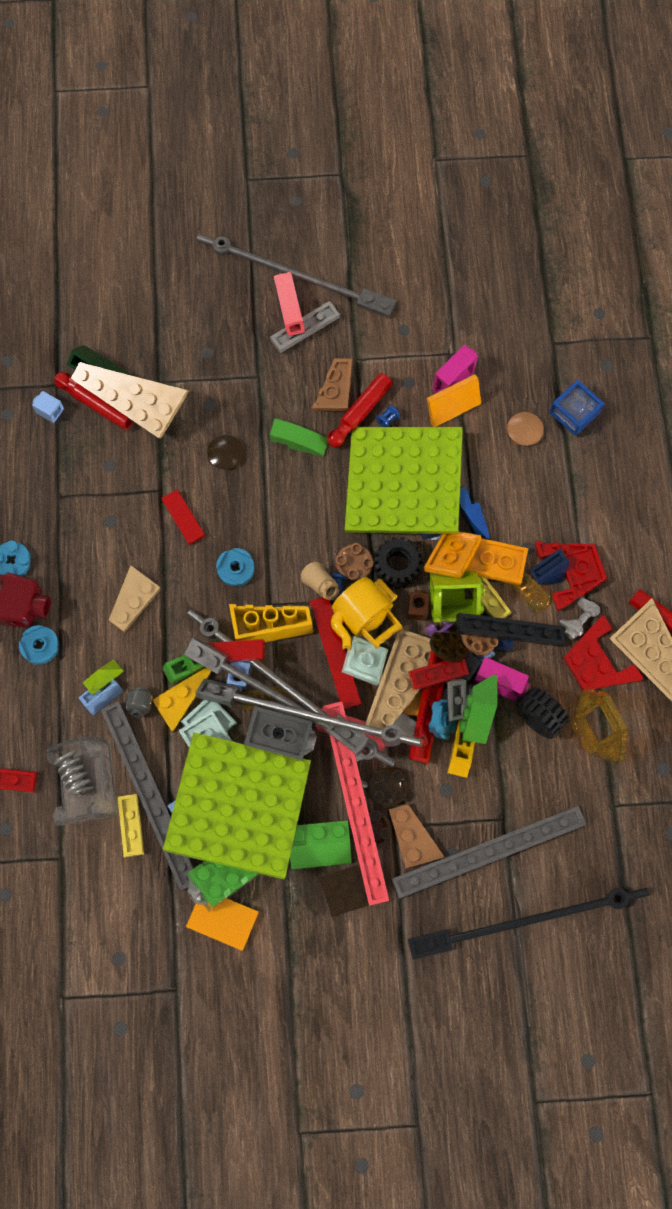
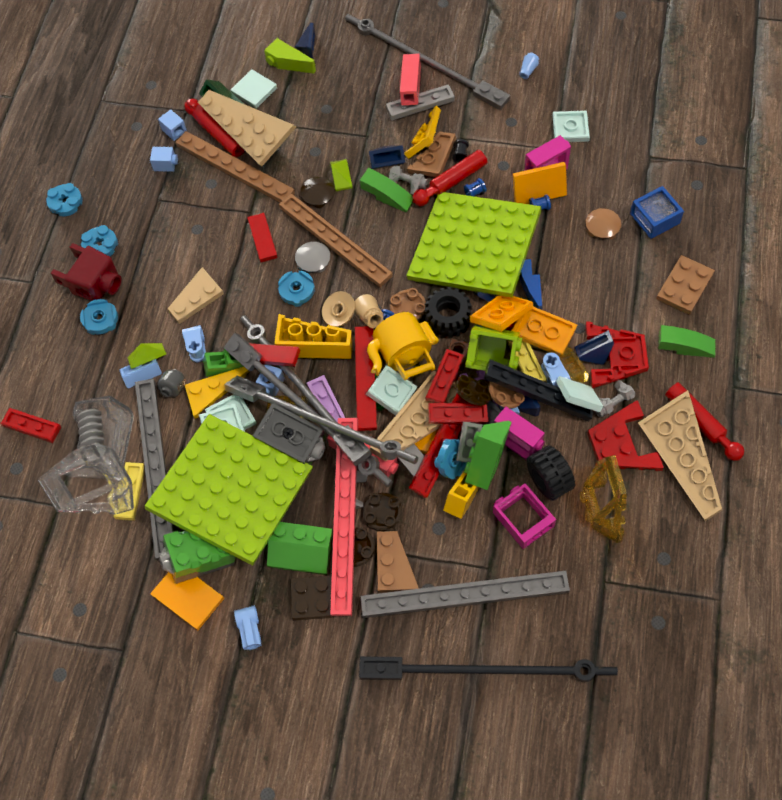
camera: 20 degrees right, 10 degrees down
(51, 449) = (163, 159): none -> light blue brick
(120, 821) = (119, 482): none -> clear windscreen
(122, 344) = (254, 88): none -> light aqua tile
(129, 442) = (234, 167): none -> medium nougat plate
(147, 650) = (194, 343): none -> light blue piece
(148, 301) = (288, 58): none -> lime slope
(163, 277) = (307, 40): none -> dark blue slope
(242, 528) = (312, 257): none -> light grey dish
(244, 427) = (341, 175): none -> lime slope
(260, 505) = (336, 240): none -> medium nougat plate
(278, 582) = (334, 304): none -> tan dish
(287, 396) = (387, 156): none -> dark blue slope
(290, 932) = (247, 623): none -> light blue piece
(297, 679) = (324, 394): none -> lavender plate
(321, 363) = (425, 135): none -> yellow wing
(326, 420) = (417, 180): none -> light grey piece
(361, 375) = (460, 149): none -> black bush
(406, 261) = (529, 63): none -> light blue cone
(414, 635) = (445, 377): none -> red tile
(458, 420) = (544, 202): none -> blue bush
(466, 324) = (571, 125): none -> light aqua tile
(519, 605) = (553, 368): none -> light blue piece
(536, 747) = (548, 520): none -> dark pink window
(548, 623) = (579, 394): none -> light aqua tile
(620, 479) = (685, 284): none -> medium nougat plate
(635, 542) = (686, 342): none -> bright green slope

